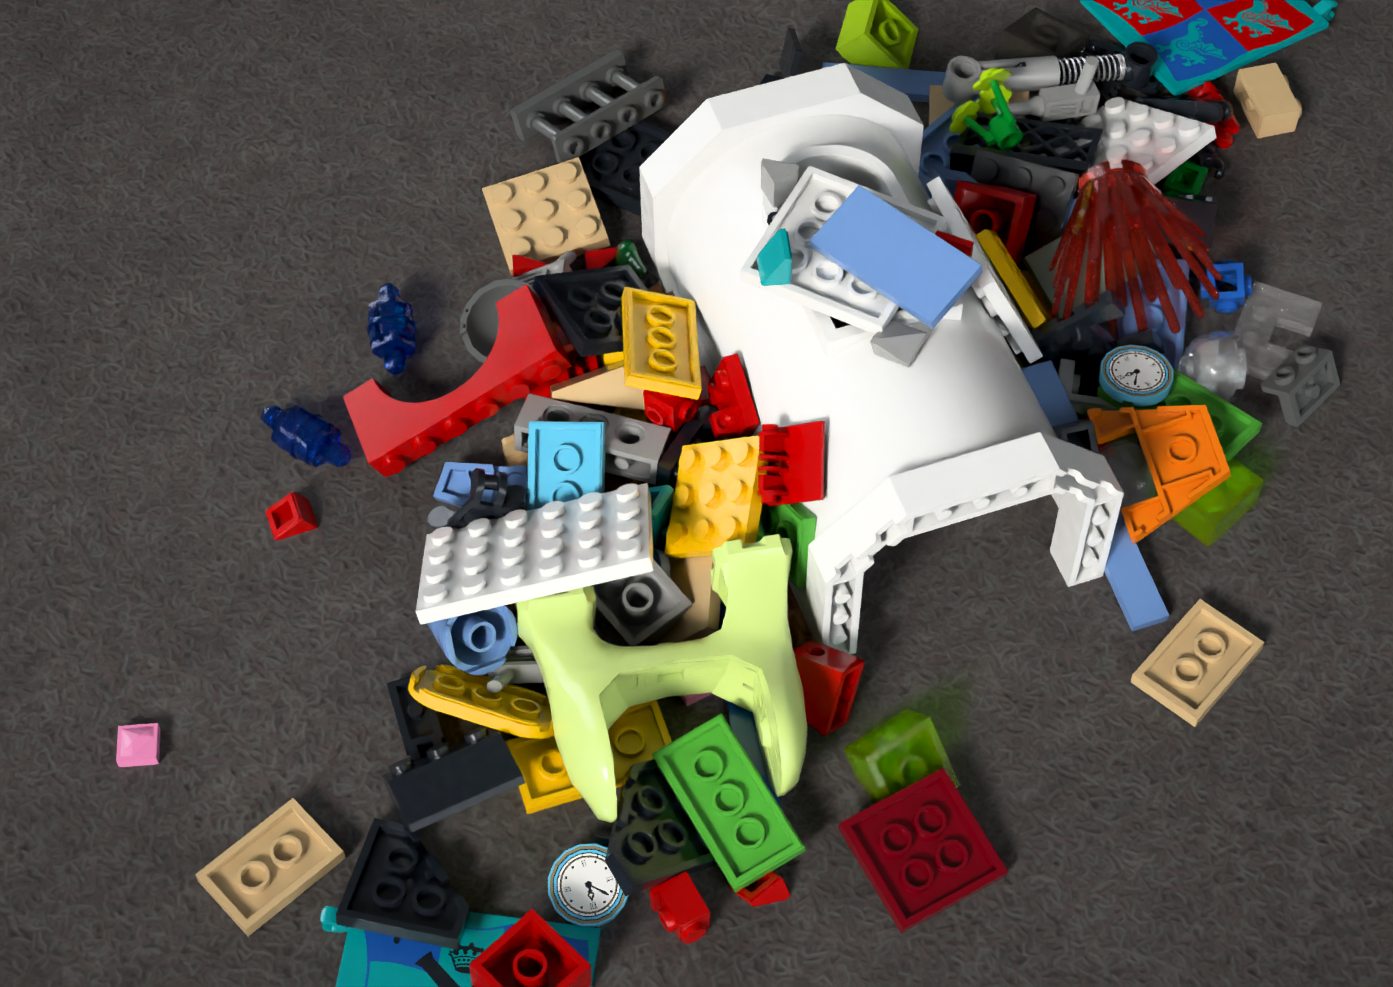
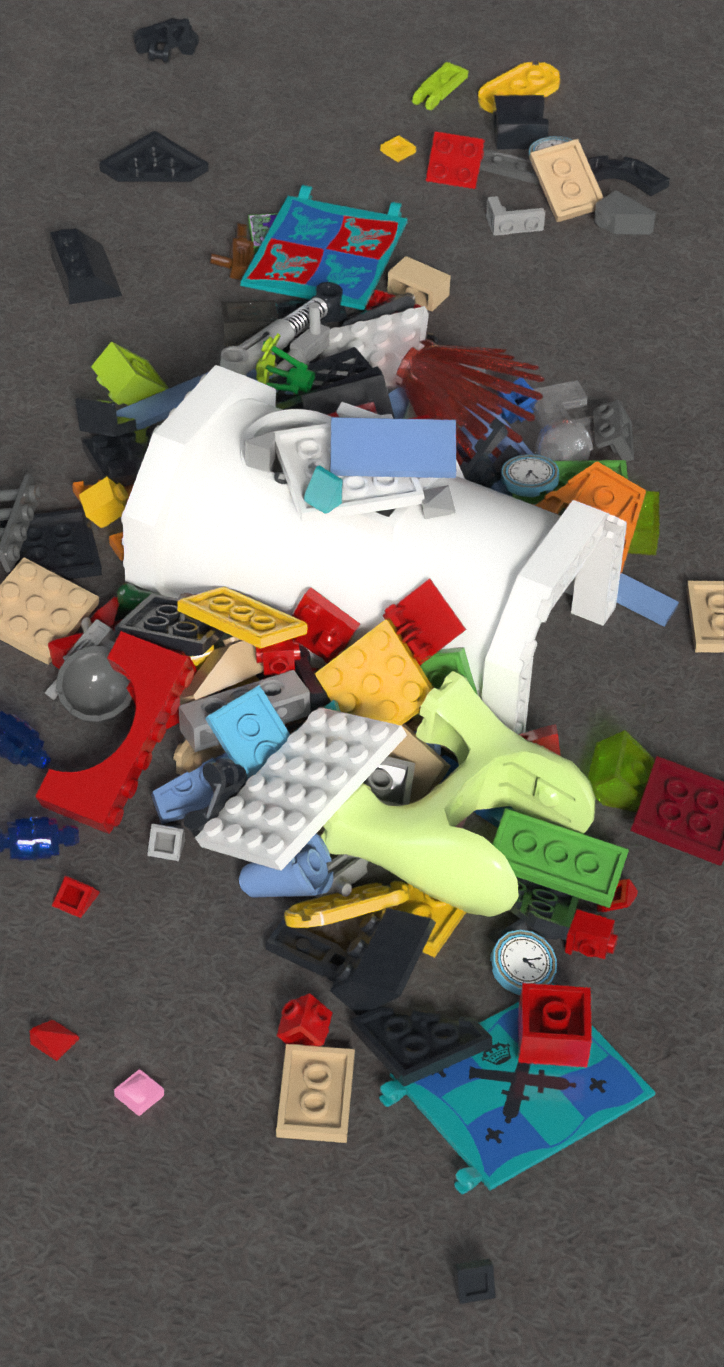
camera: 45 degrees left, 10 degrees down
(129, 637) = (52, 1039): none -> red slope
(328, 789) = (304, 1022): none -> red brick
(413, 520) = (166, 842): none -> light grey slope

